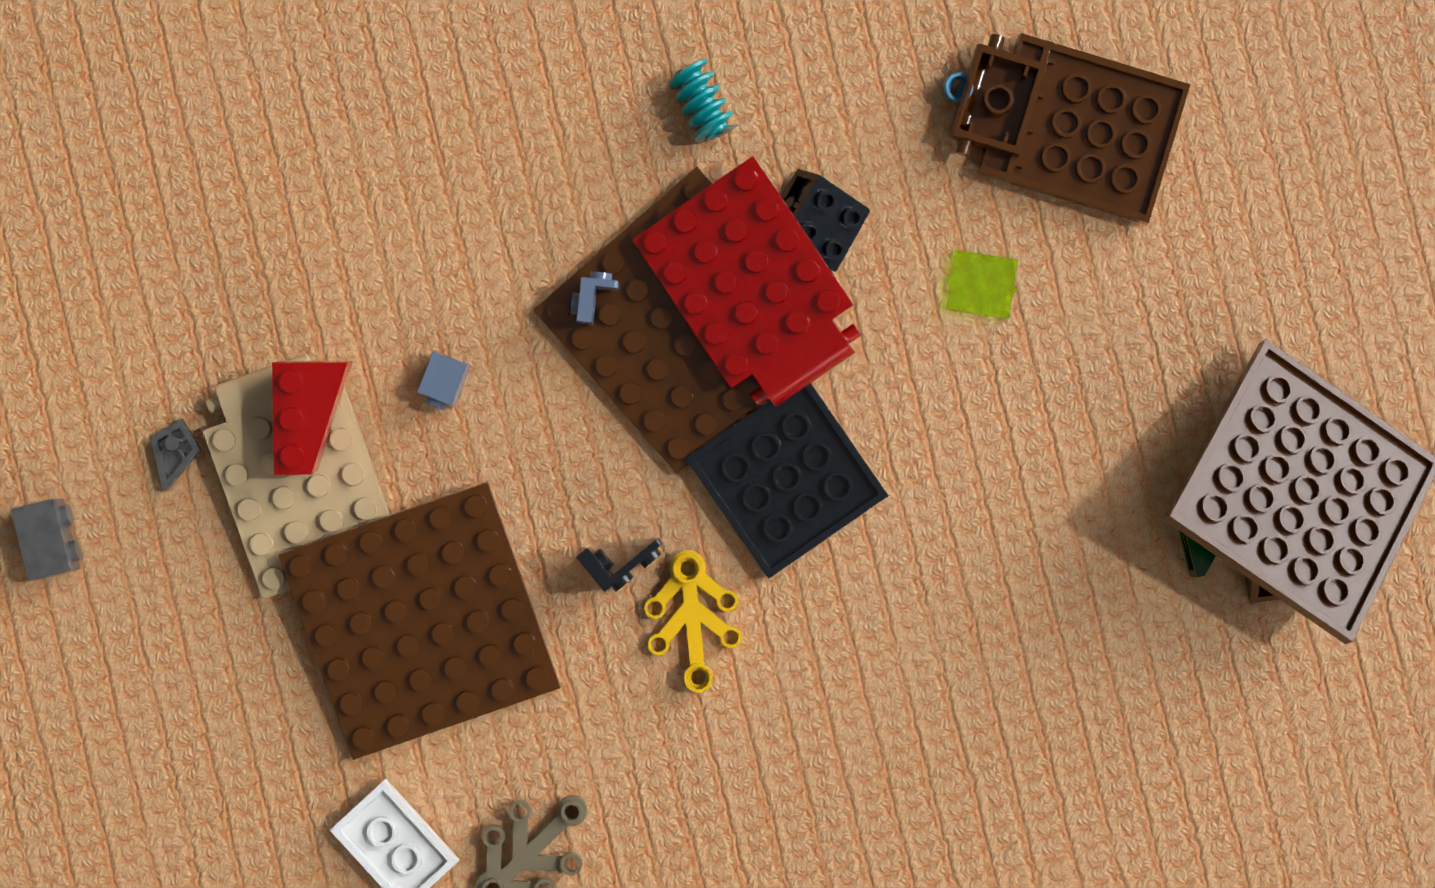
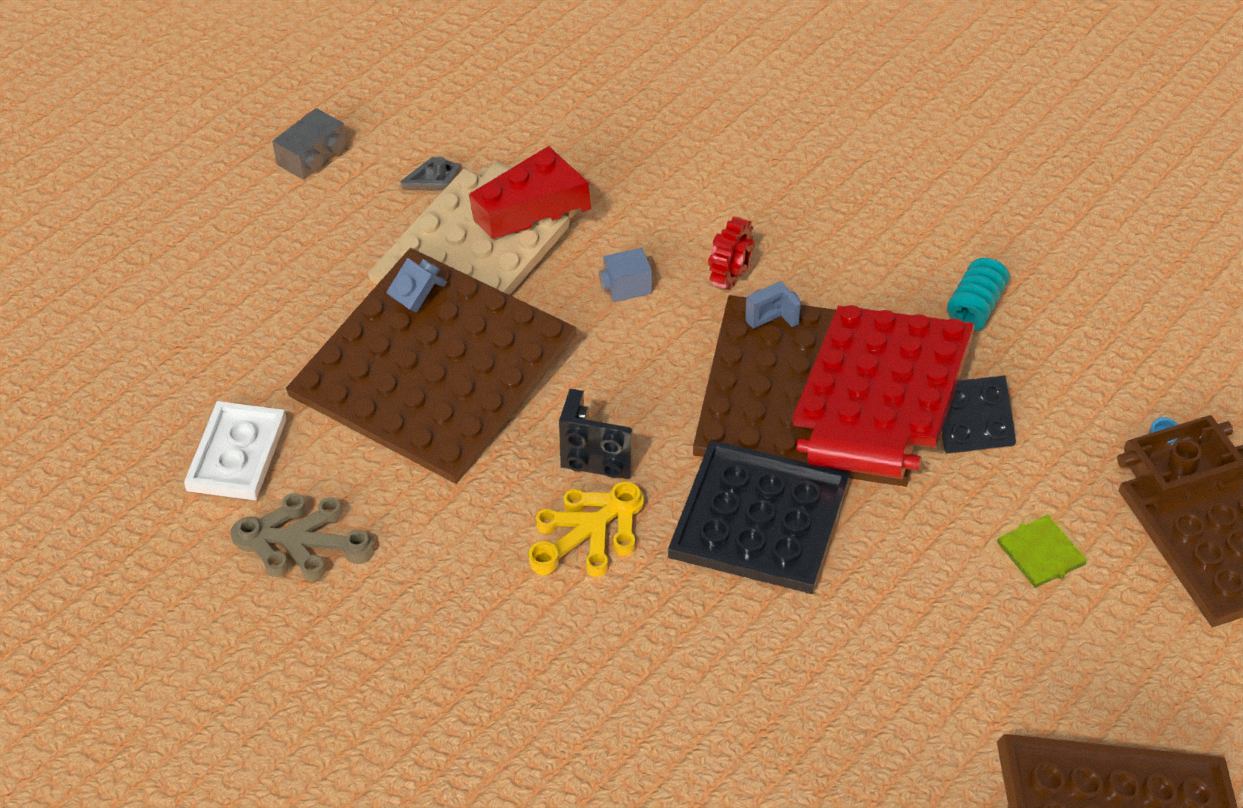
camera: 55 degrees right, 40 degrees down
(339, 588) = (415, 283): none -> sand blue bracket
(501, 280) = (731, 253): none -> red gear

